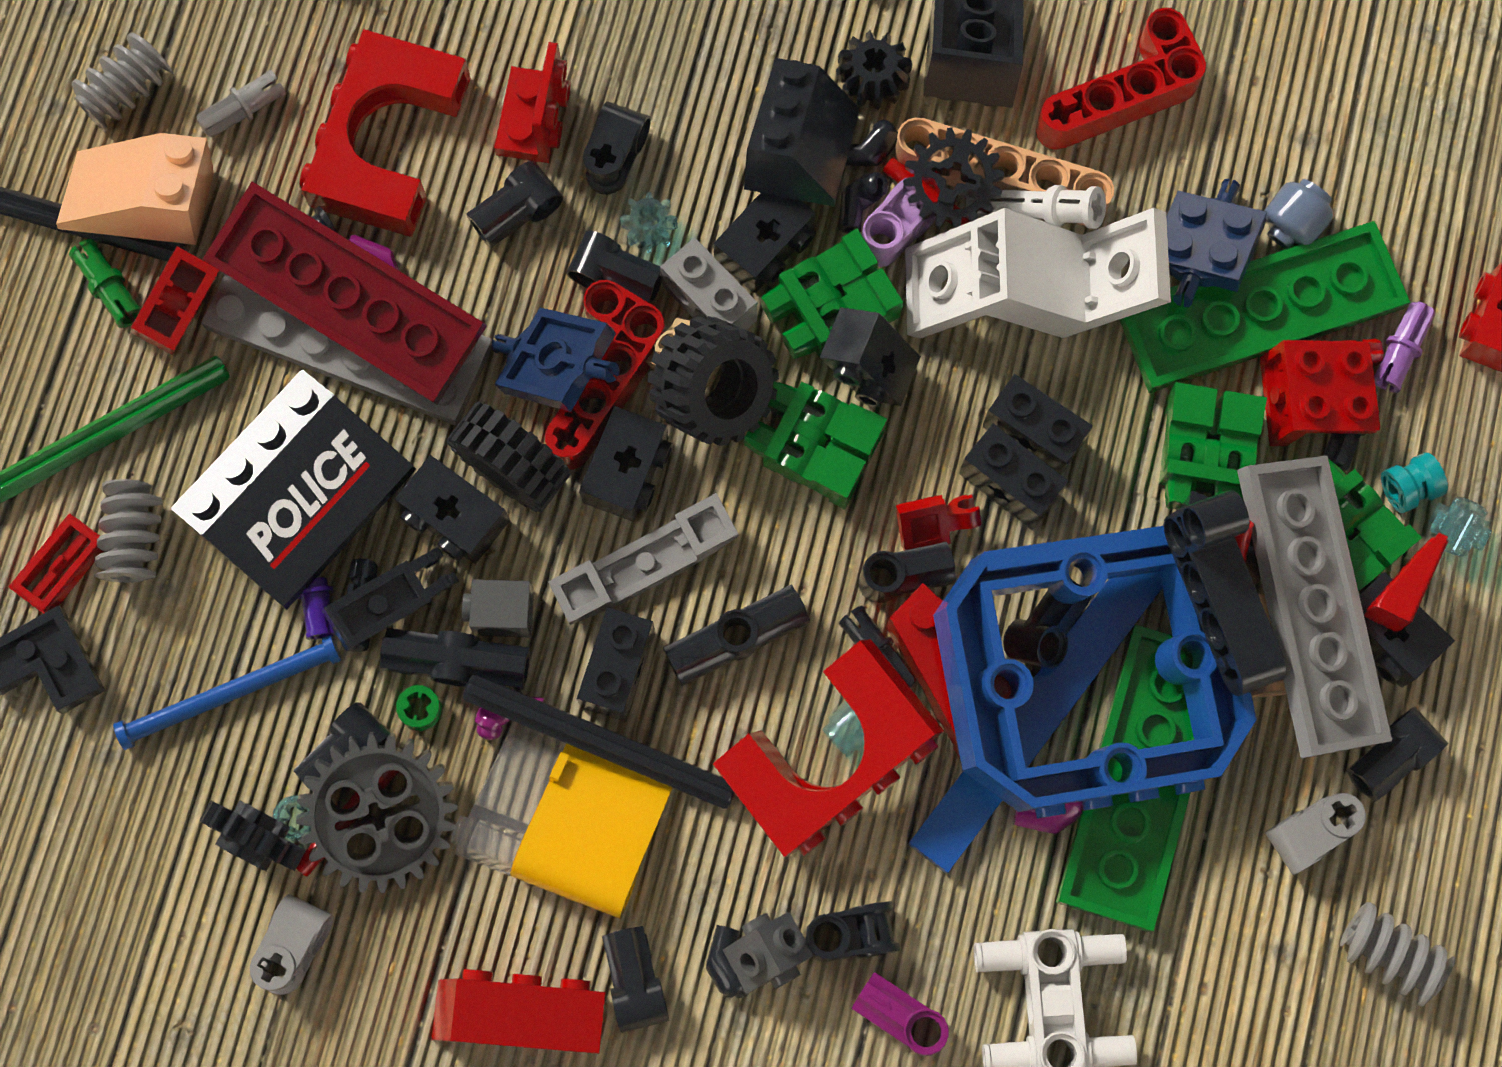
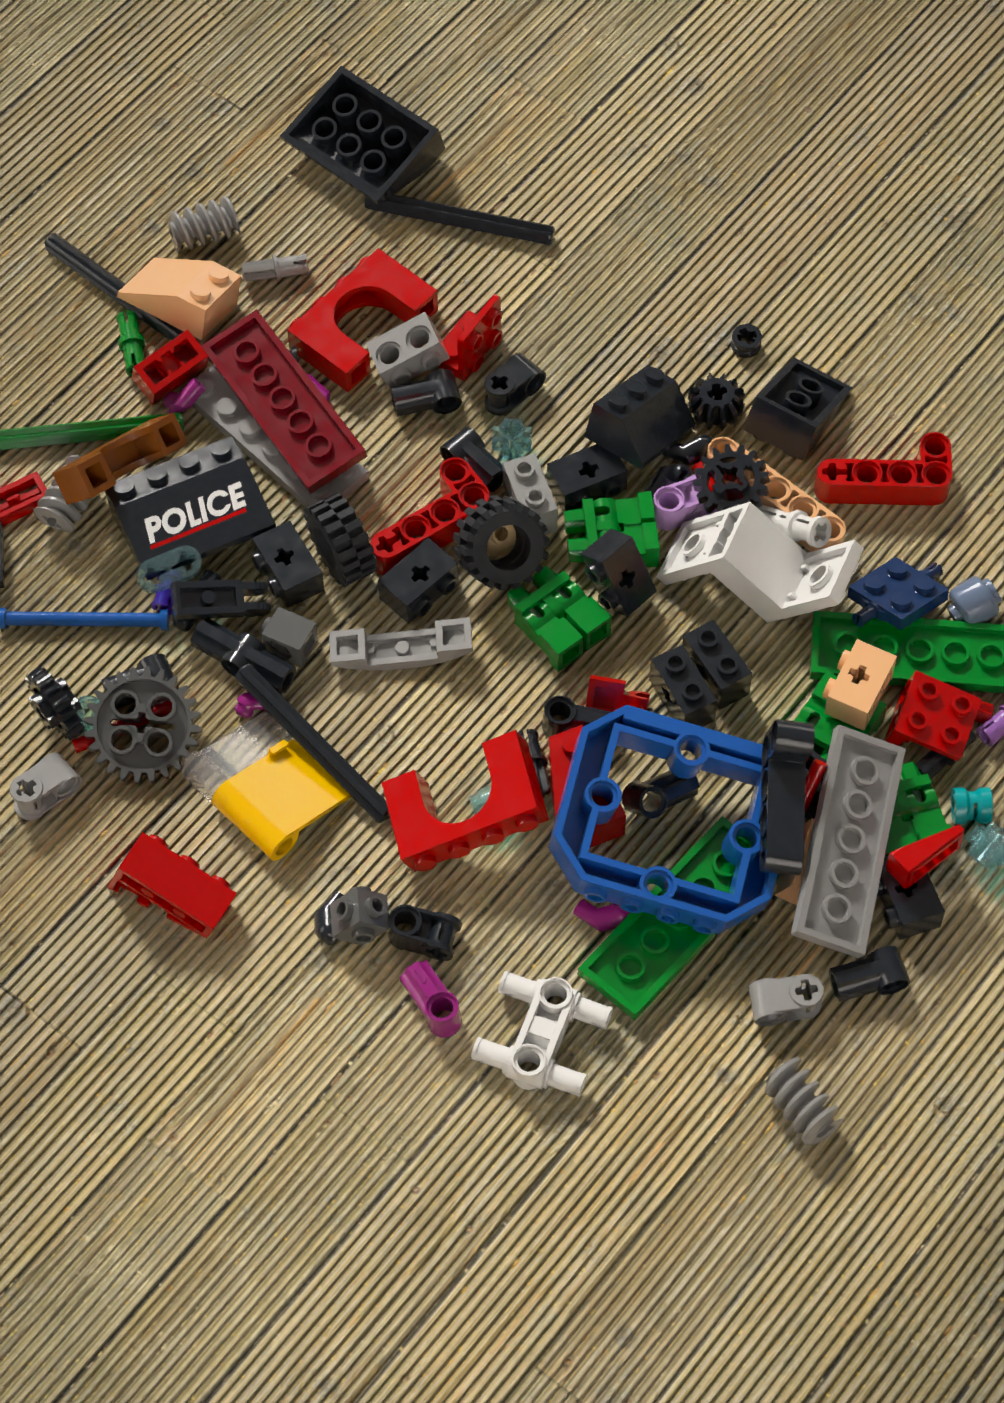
camera: 25 degrees right, 15 degrees down
(151, 502) = (129, 451): none -> dark orange arch
(215, 337) = (188, 396): none -> magenta arm
(301, 579) = (165, 561): none -> clear light blue beam
(404, 706) = (214, 680): green bush -> none
(458, 147) = (405, 345): none -> light grey brick
(555, 358) = (403, 493): dark blue plate -> none
(616, 664) = (349, 700): black brick -> none
(636, 990) = (260, 907): black piece -> none
(764, 620) = (419, 717): black piece -> none
(1054, 693) = (631, 845): blue tile -> none
(1244, 368) = (853, 701): none -> light nougat brick

